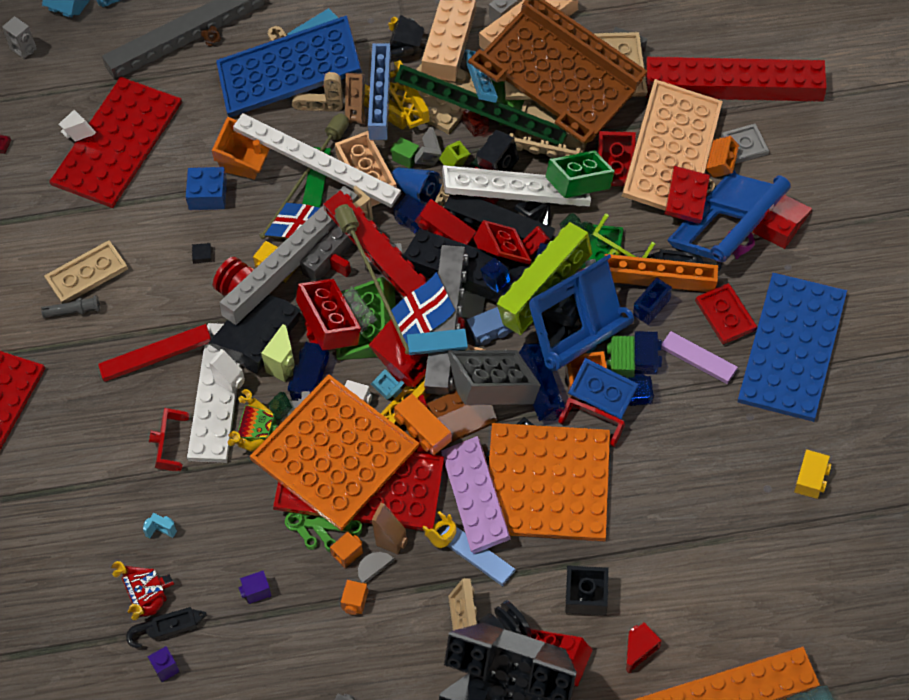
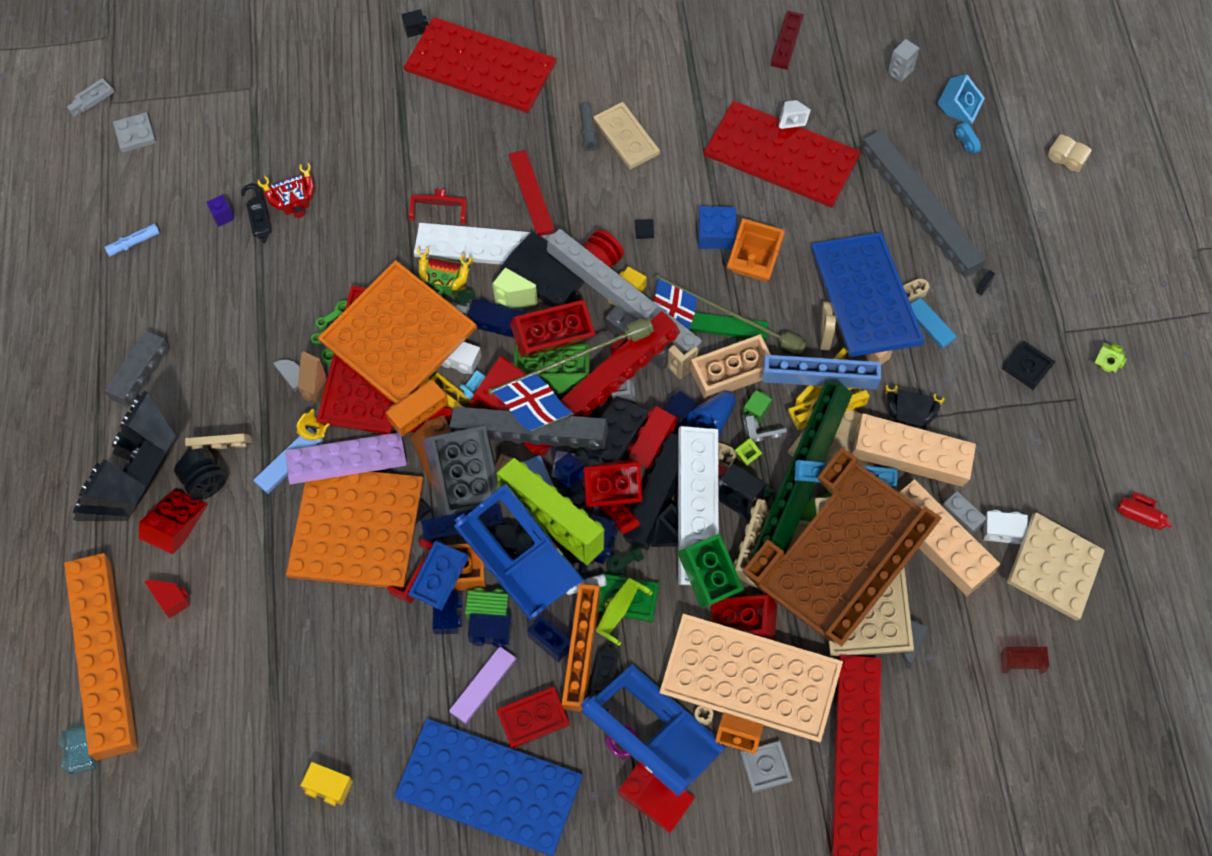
camera: 90 degrees right, 5 degrees up
(159, 523) = (353, 205): medium azure bracket -> none
(215, 35) = (910, 227): reddish brown plate -> none
(226, 372) = (493, 243): white slope -> none
(255, 587) = (281, 278): dark purple brick -> none
(316, 160) = (731, 314): white plate -> none
(346, 549) = (305, 344): orange brick -> none
(354, 597) = (258, 355): orange brick -> none
(355, 97) = (831, 350): medium nougat plate -> none
(359, 308) = (556, 354): clear plate -> none
(437, 341) = (495, 414): dark azure tile -> none
(587, 226) = (658, 567): clear green leg -> none
(587, 590) = (228, 550): black brick -> none
(687, 194) = (683, 685): red plate -> none

